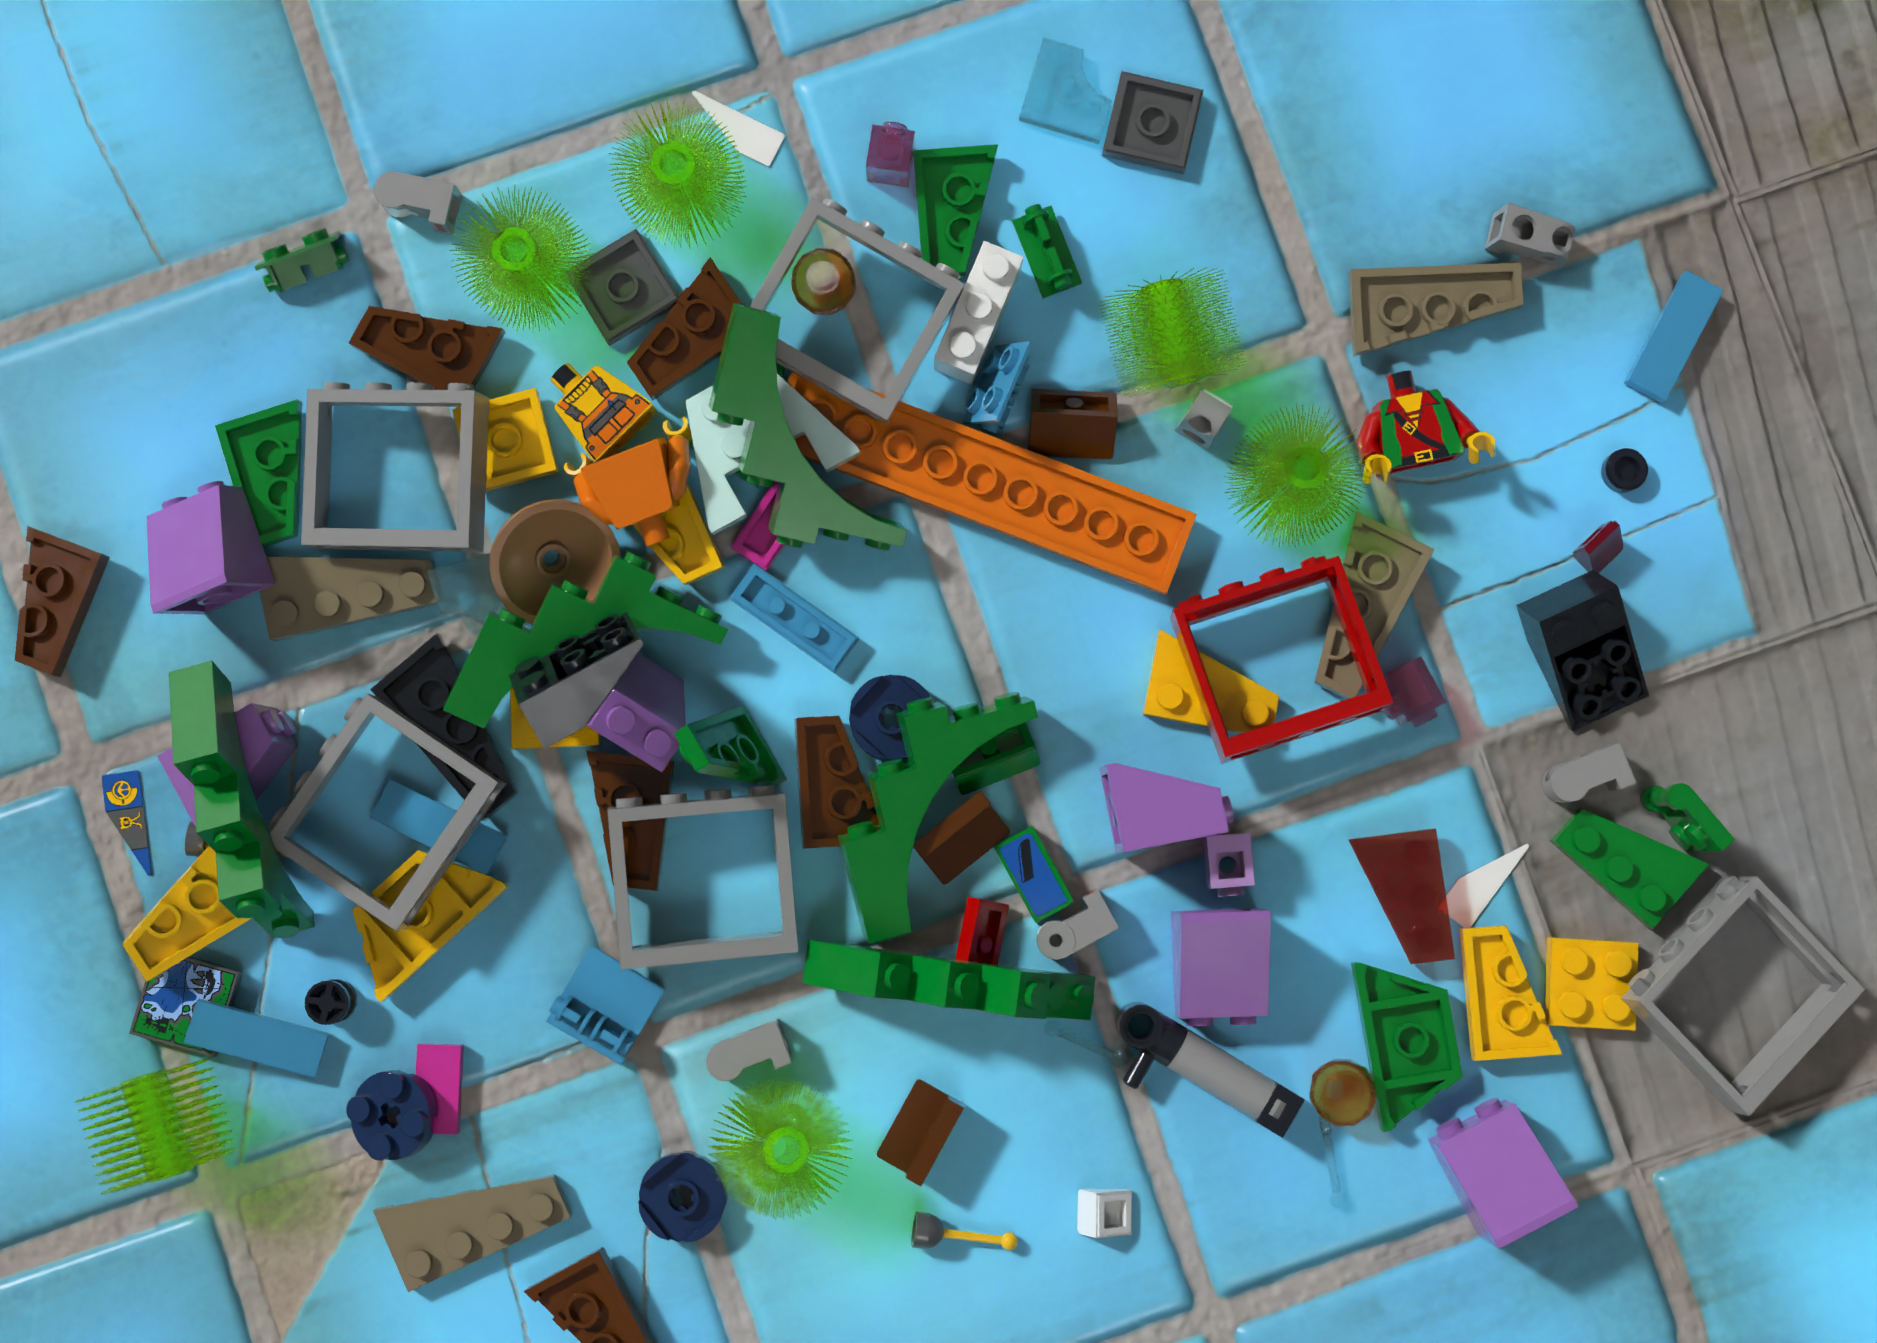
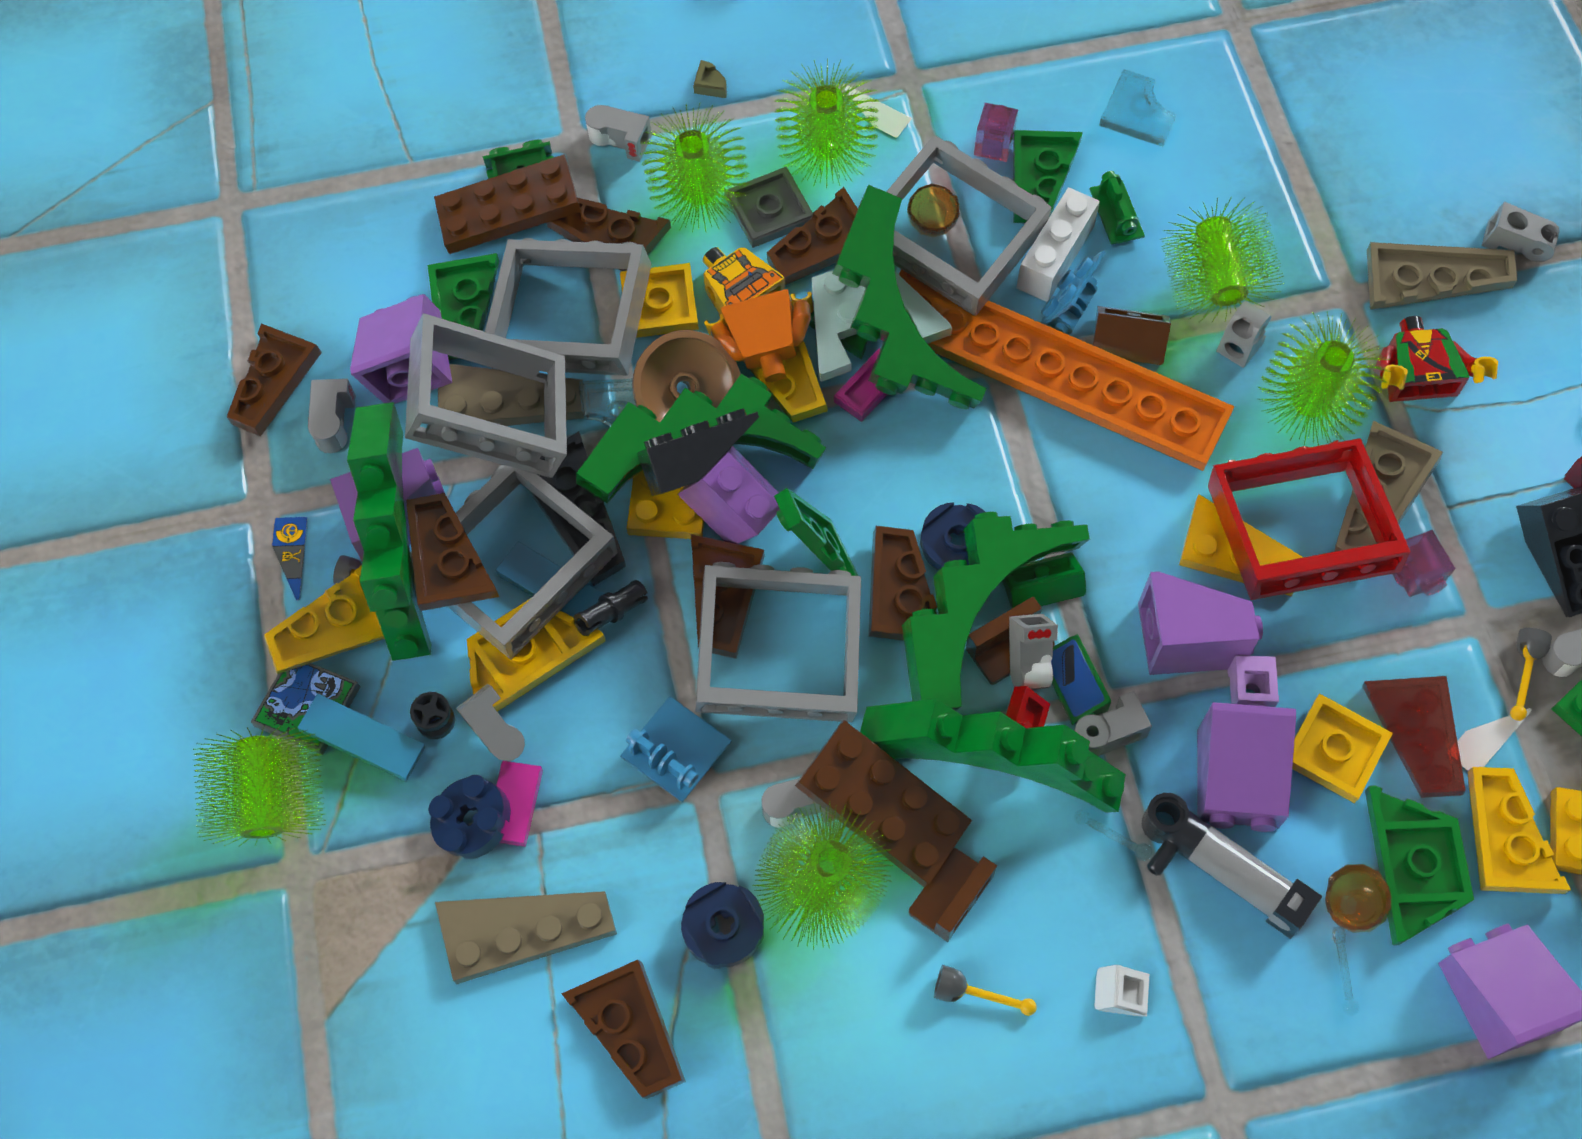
camera: 15 degrees right, 20 degrees down
(135, 642) = (327, 412): none -> light grey leg
(297, 326) = (506, 204): none -> reddish brown plate
(307, 836) = (443, 557): none -> reddish brown wing
(324, 699) = (474, 435): none -> light grey window
(395, 1014) = (499, 738): none -> light grey leg
(508, 854) = (610, 607): none -> black pin
(524, 106) = (709, 81): none -> olive tile
(794, 618) = (881, 457): dark azure tile -> none
(837, 1049) = (911, 815): none -> reddish brown plate
(985, 858) = (1031, 650): none -> light grey leg
(1152, 122) = (1207, 134): dark grey tile -> none
(1320, 920) = (1338, 748): none -> yellow plate
(1530, 778) = (1531, 645): none -> hinge

